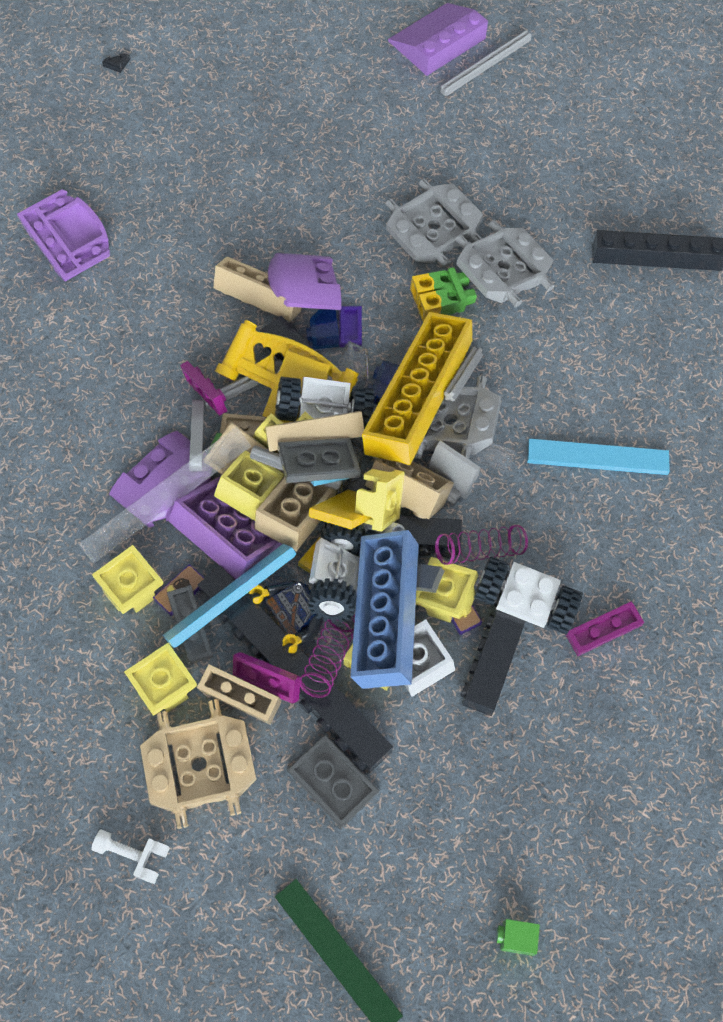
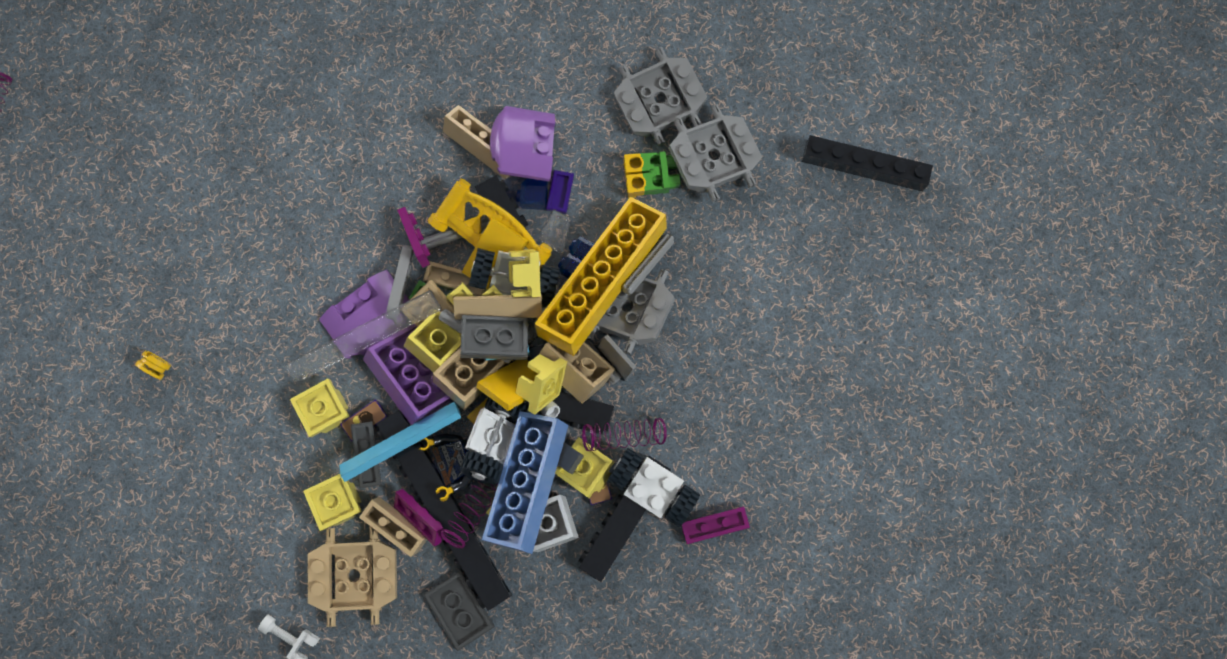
camera: 20 degrees right, 15 degrees up
(66, 233) = (318, 52): medium lavender slope -> none
(342, 388) = (525, 273): none -> light yellow panel
(598, 456) = (753, 362): medium azure tile -> none

